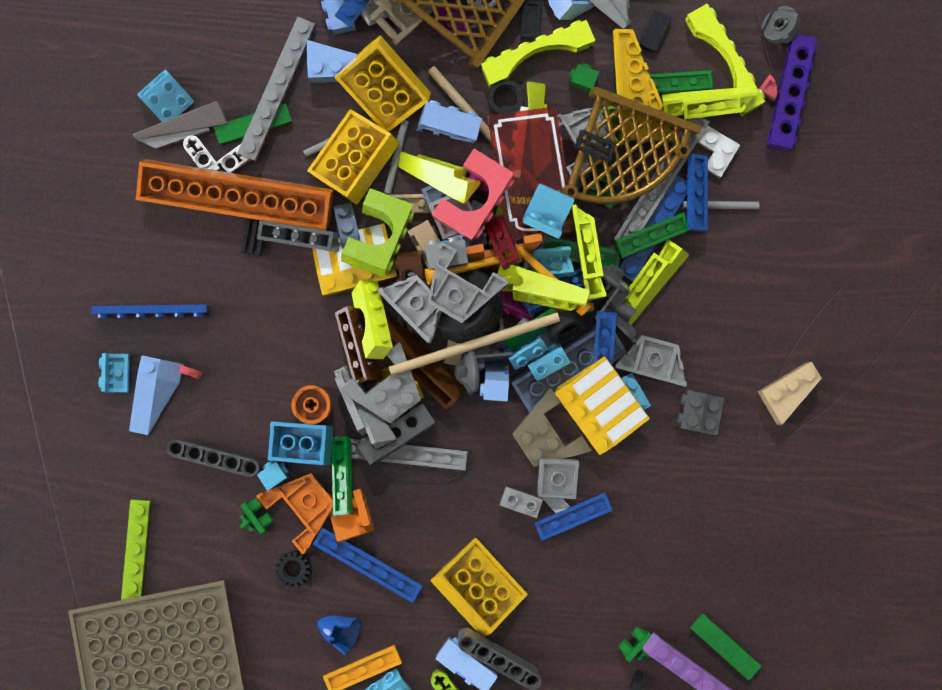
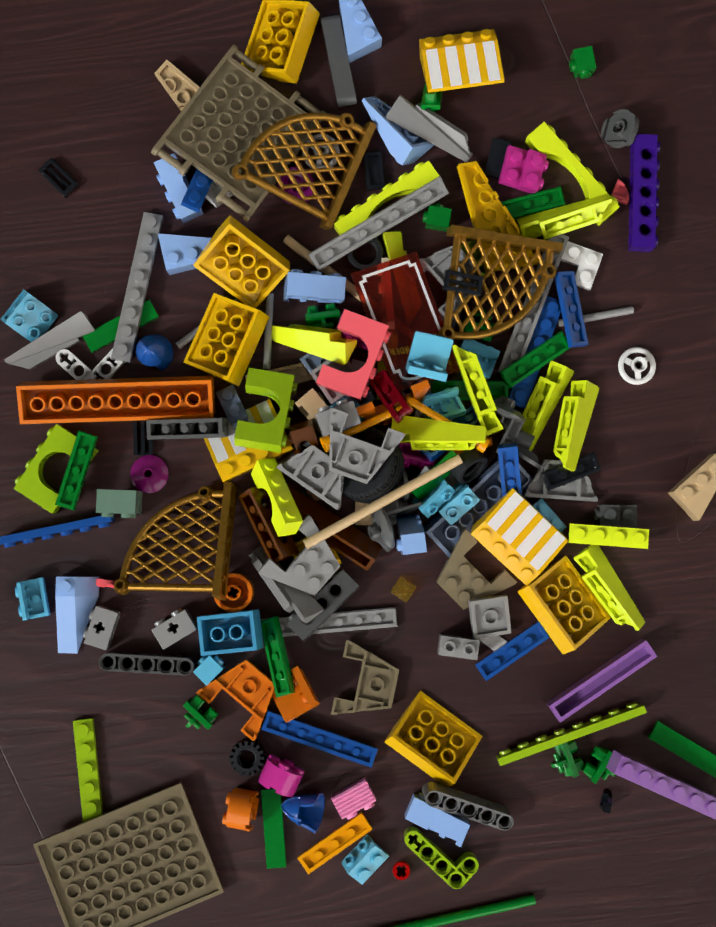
camera: 15 degrees left, 0 degrees up
(137, 260) = (32, 481): none -> lime arch
(182, 256) = (76, 470): none -> green tile
(185, 408) = (109, 620): none -> light grey brick
(217, 294) = (122, 502): none -> sand green brick
(238, 436) = (166, 636): none -> light grey brick
(261, 277) = (156, 480): none -> magenta dish
(277, 618) = (241, 809): none -> orange brick
(281, 155) = (154, 351): none -> blue helmet
(305, 643) = (273, 829): none -> green tile
(313, 349) = (223, 551): none -> pearl gold piece
(322, 593) = (281, 776): none -> dark pink brick
(389, 630) = (354, 798): none -> bright pink brick
(432, 522) = (375, 683): none -> dark tan wing
(452, 155) = (323, 319): none -> green hips
(478, 435) = (403, 589): none -> clear yellow tile
(524, 72) = (378, 223): none -> light grey tile
(603, 633) = (565, 761): none -> green hips
(604, 221) = (486, 355): none -> medium azure bracket
(621, 607) = (578, 730): none -> lime plate
(633, 481) = (564, 605): none -> yellow slope
(655, 561) = (601, 679): none -> medium lavender brick
(665, 351) = (560, 476): none -> black tile
(678, 46) = (523, 169): none -> dark pink plate
(678, 304) = (574, 422): none -> neon yellow wedge
(680, 473) = (608, 587): none -> neon yellow wedge
(690, 422) = (609, 536): none -> neon yellow arch
(758, 260) = (643, 365): none -> white piece

